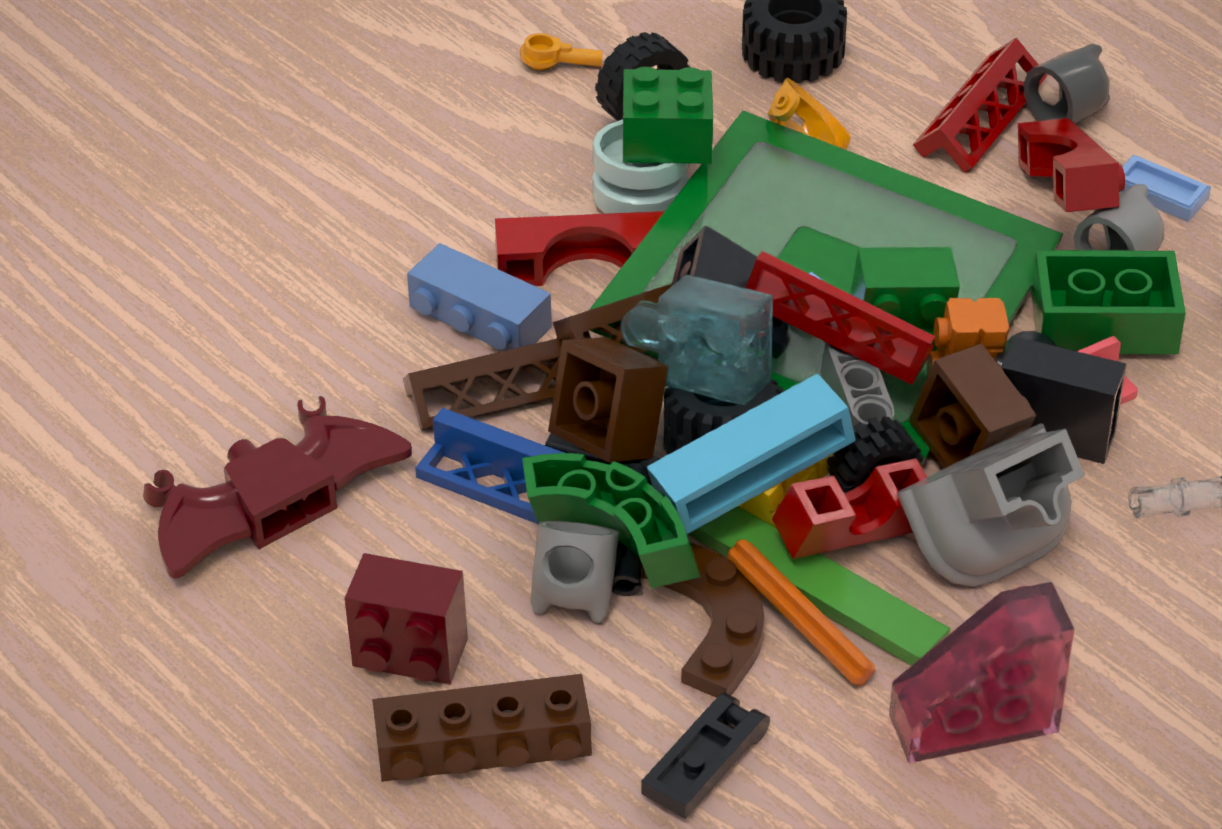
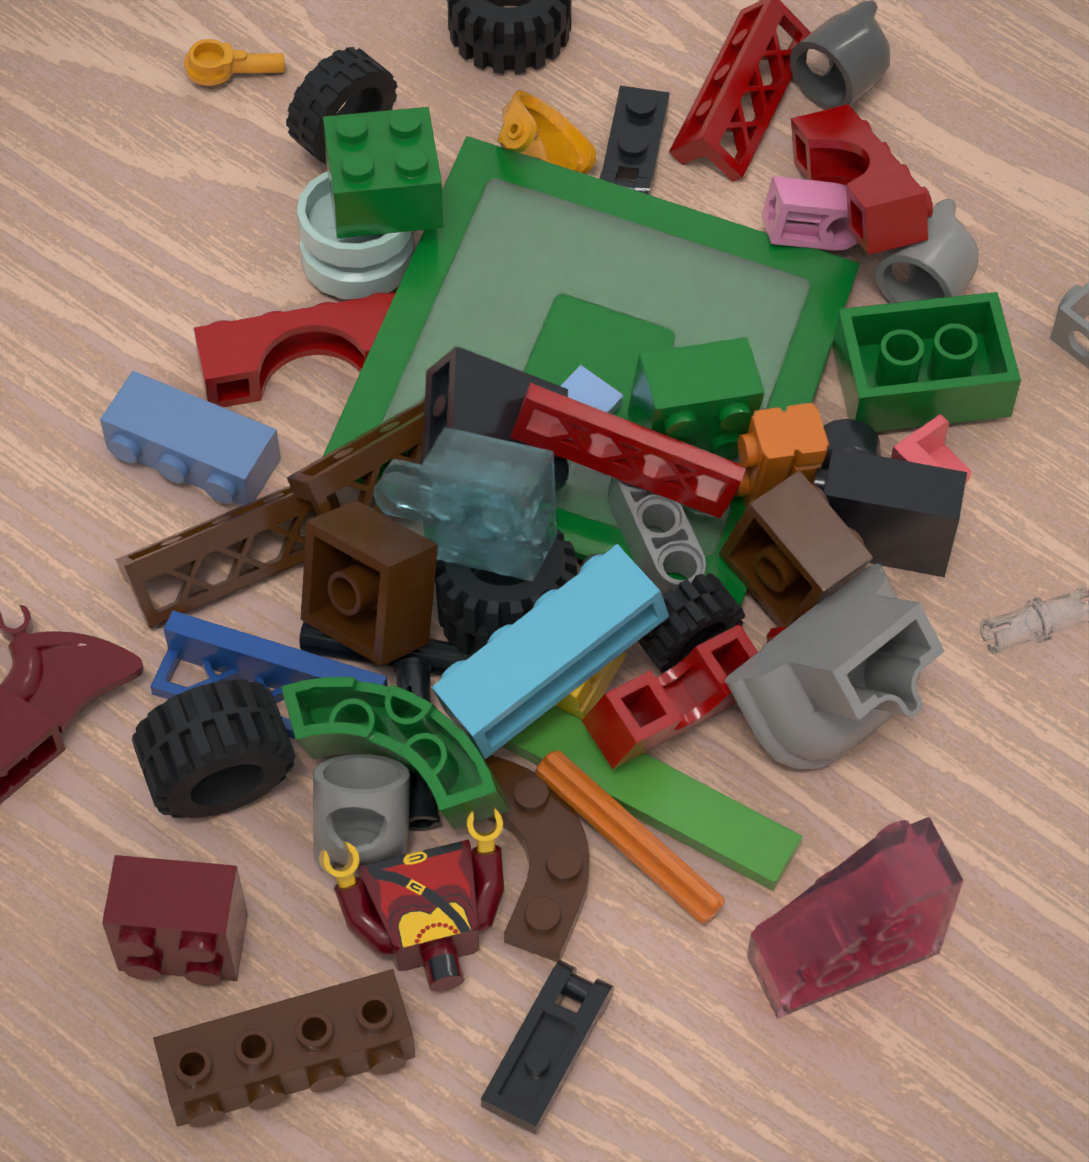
camera: 10 degrees left, 15 degrees up
(458, 502) = (213, 749): none -> black tyre
(617, 638) = (424, 904): none -> torso
(887, 130) = (636, 138): none -> black plate
(1016, 192) = (807, 214): none -> bright pink piece
(1166, 188) = (965, 180): light blue tile -> none

